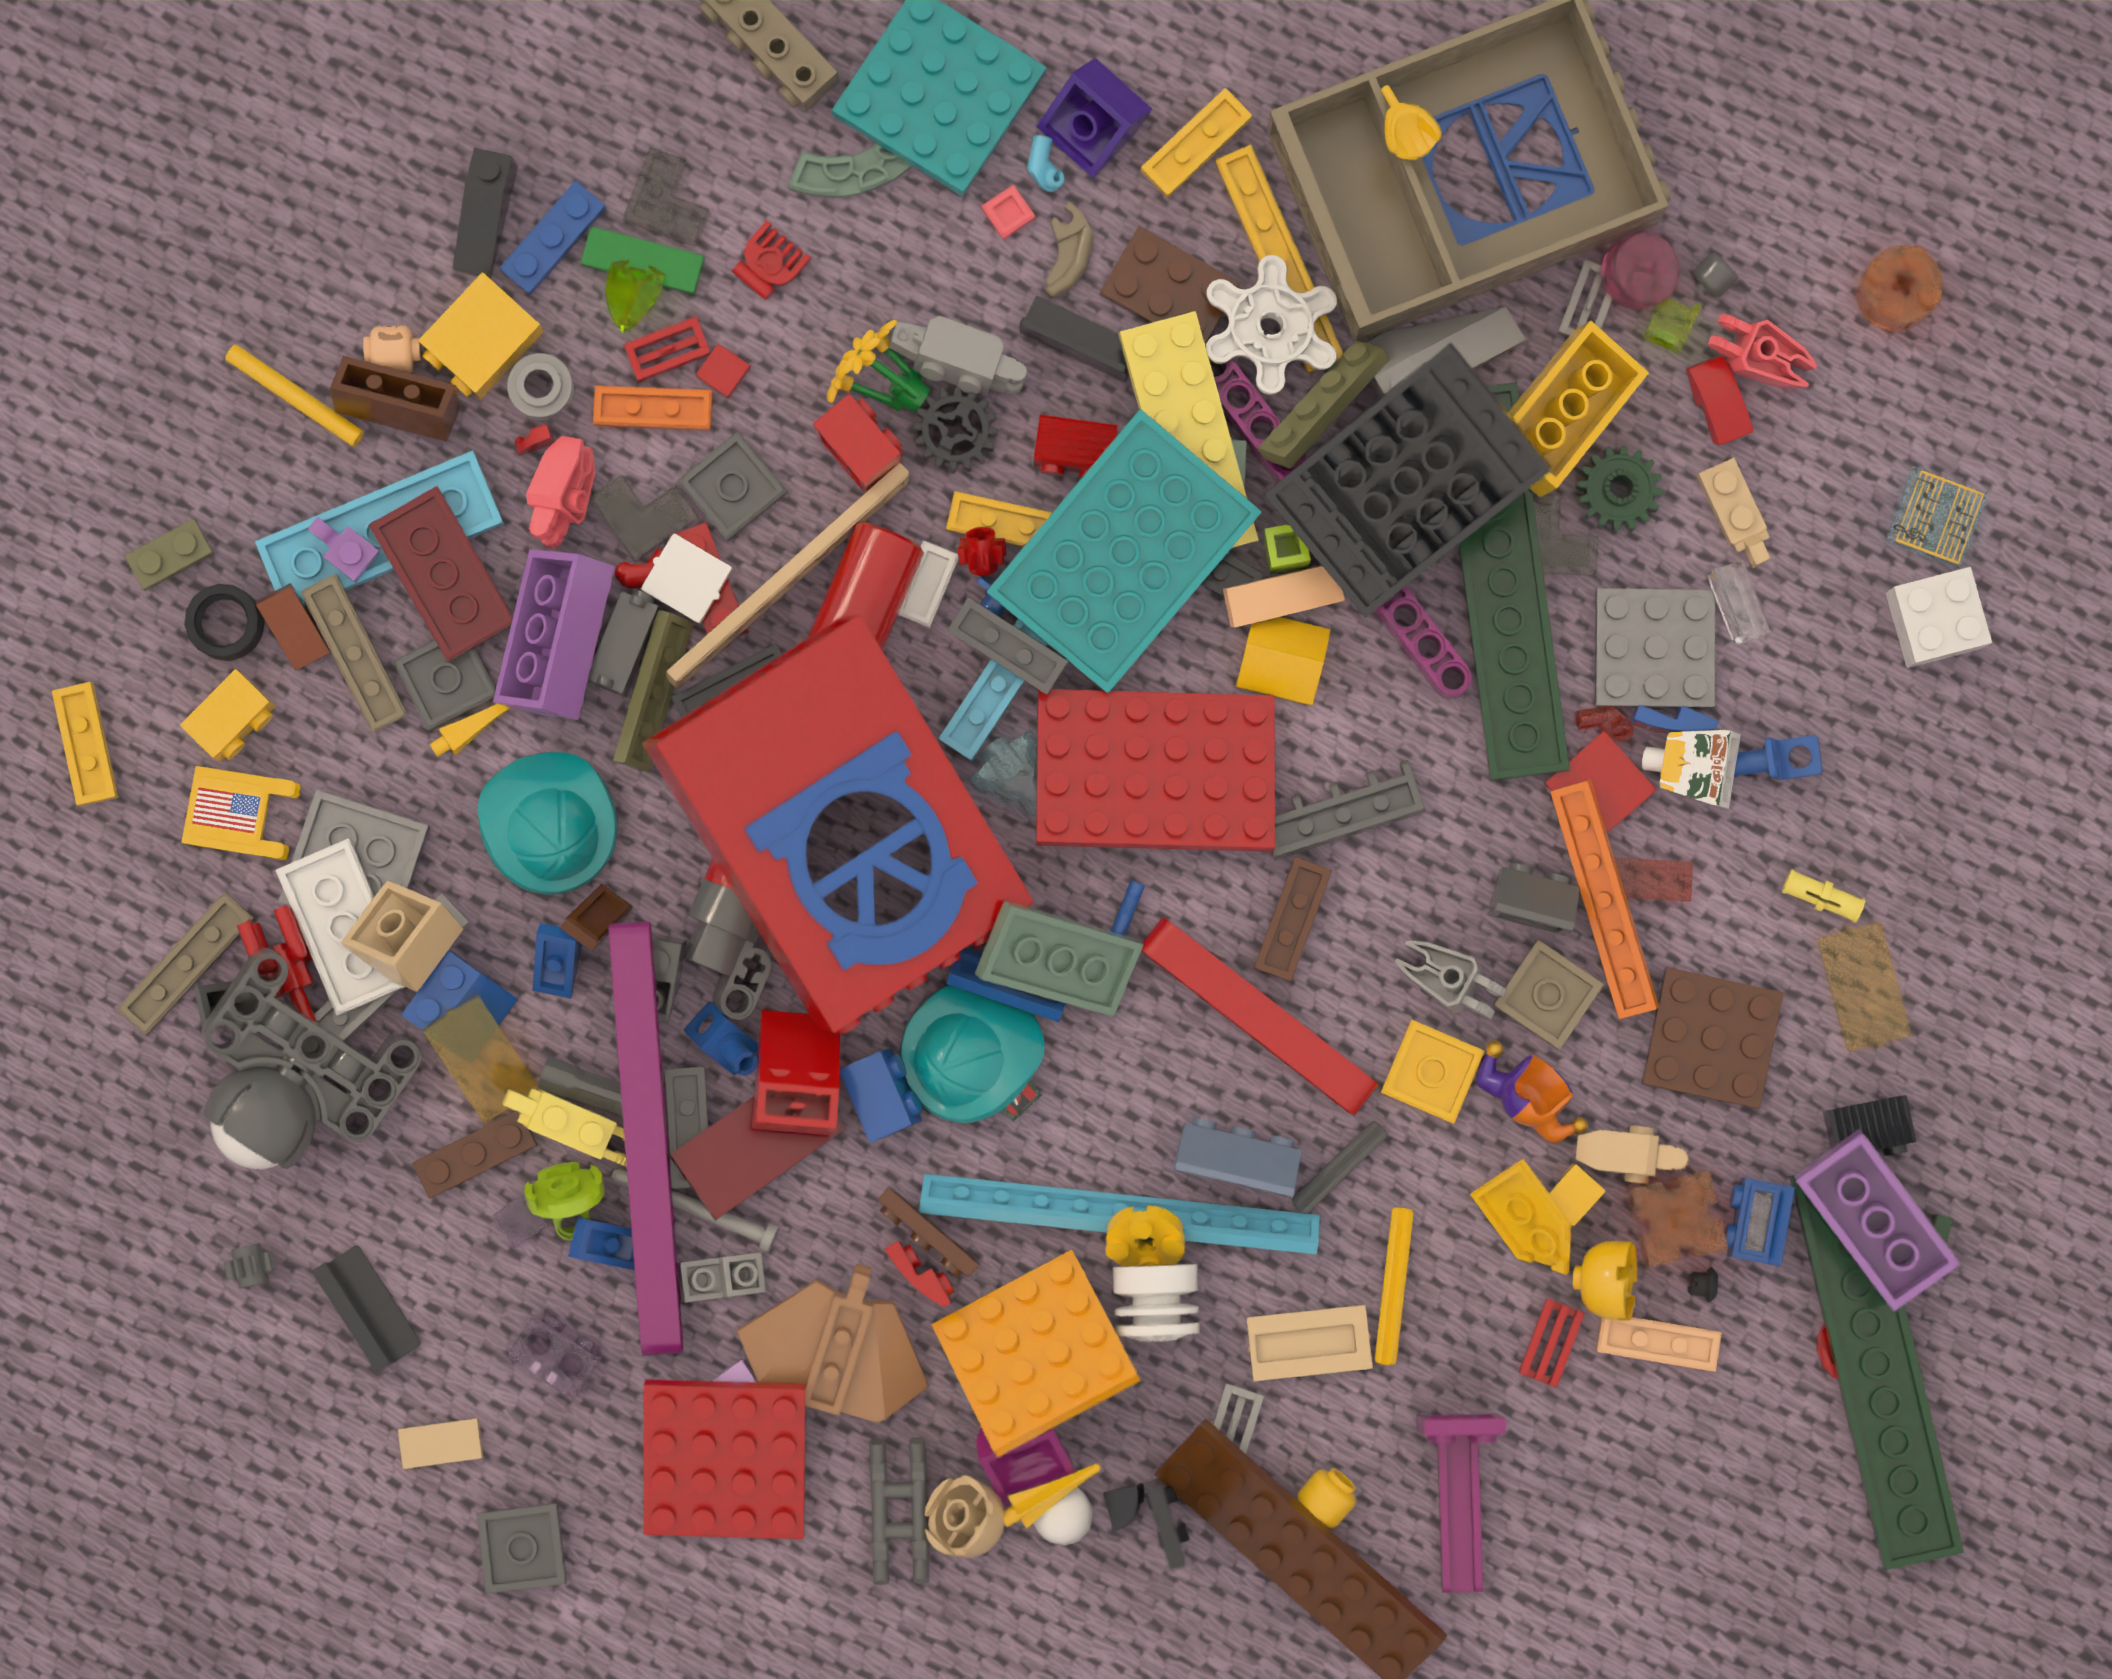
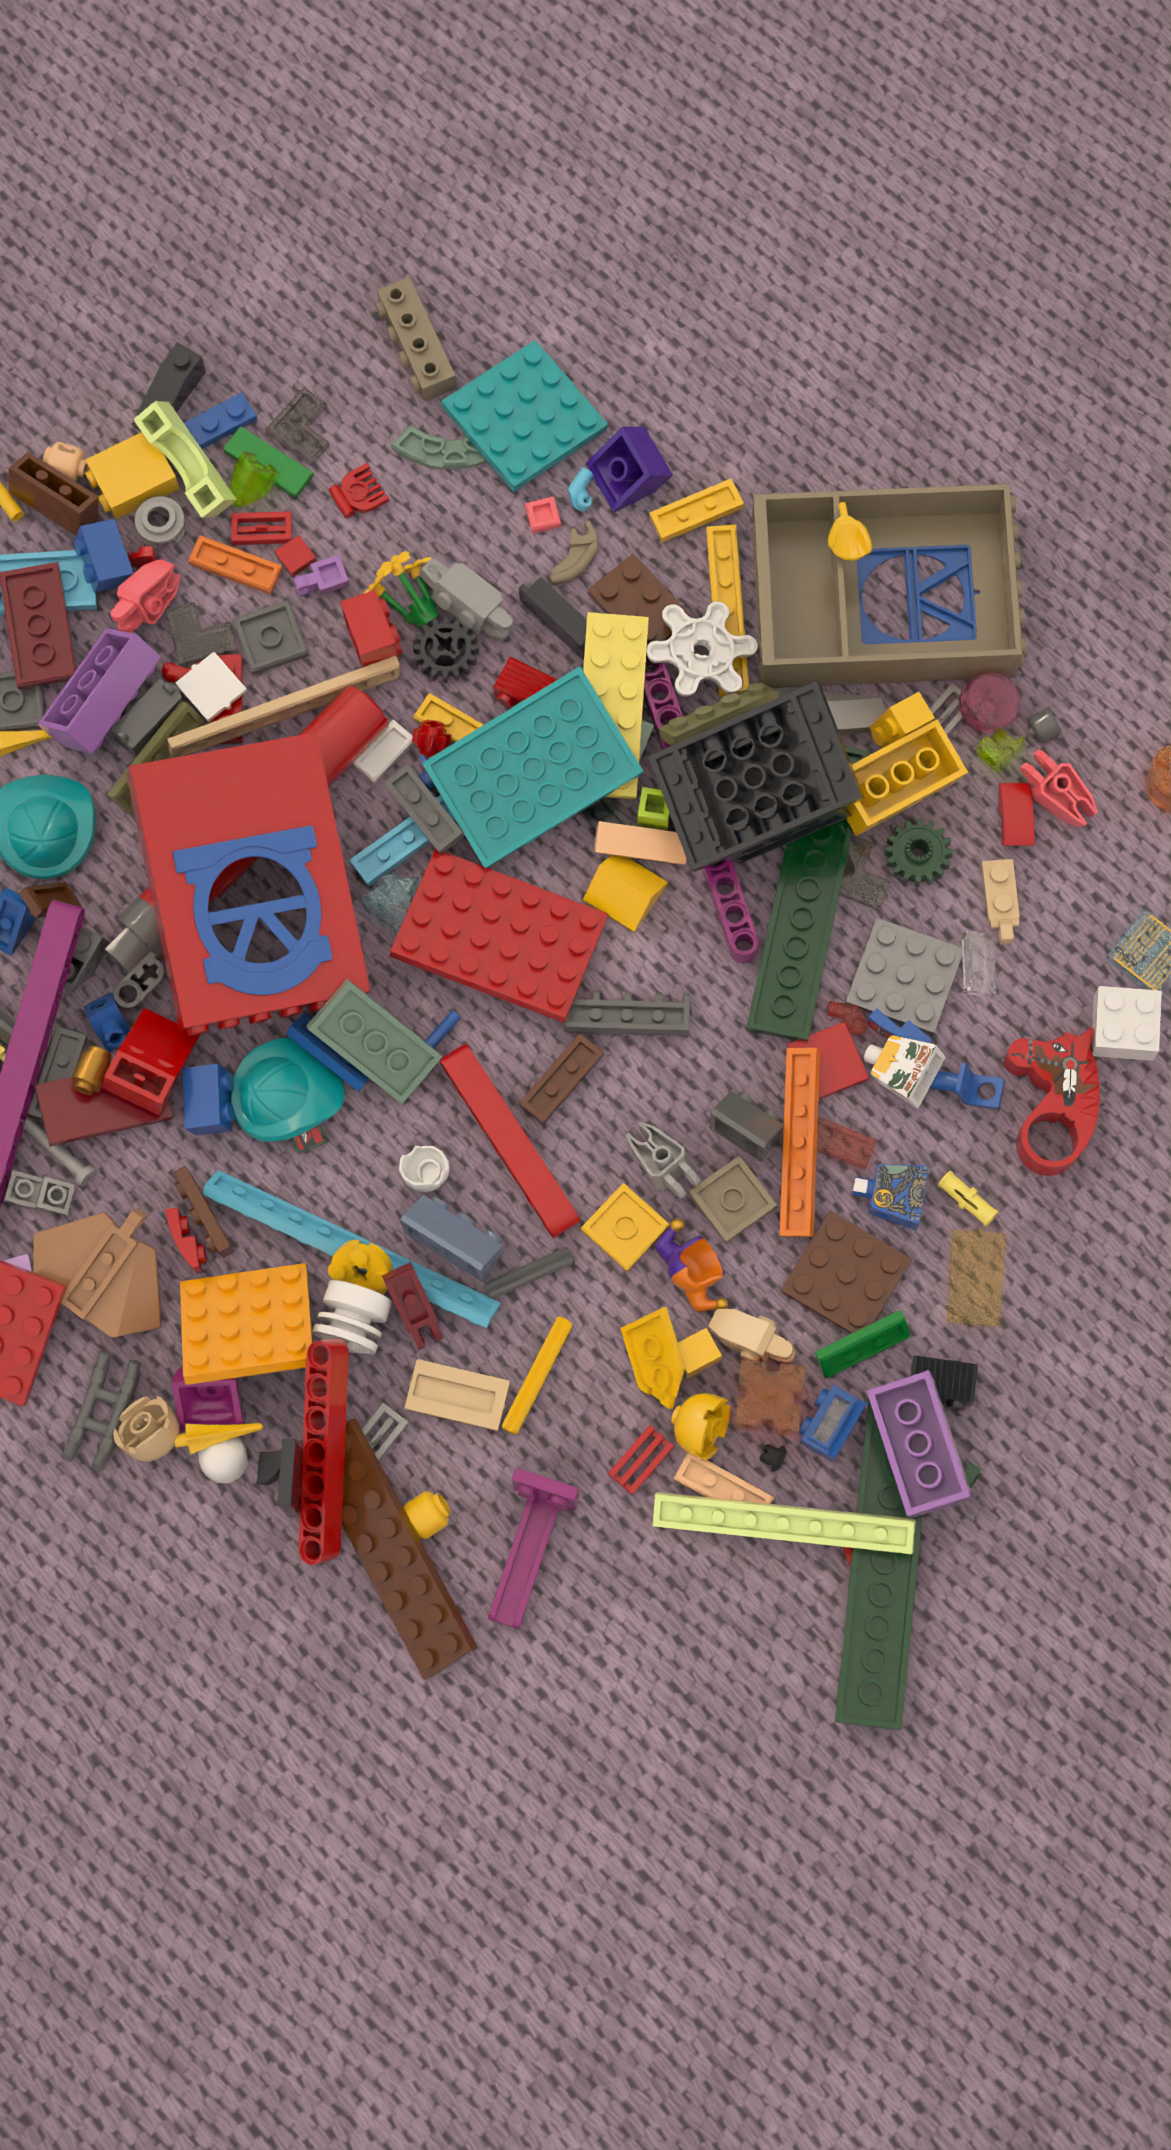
camera: 20 degrees right, 10 degrees down
(490, 458) = (102, 555): none -> blue brick
(517, 276) = (202, 481): none -> yellowish green arch
(732, 1113) = (91, 1070): none -> pearl gold brick
(772, 384) = (326, 575): none -> medium lavender plate
(1171, 1087) = (424, 1168): none -> white hair
(1190, 1456) = (331, 1437): none -> red beam
(1220, 1257) = (411, 1302): none -> dark red hinge
(1546, 336) = (901, 720): none -> yellow brick
(1737, 920) = (895, 1193): none -> torso
(1747, 1362) = (784, 1522): none -> yellowish green plate
(1762, 1116) = (862, 1344): none -> green tile
(1903, 729) = (1071, 1085): none -> red animal

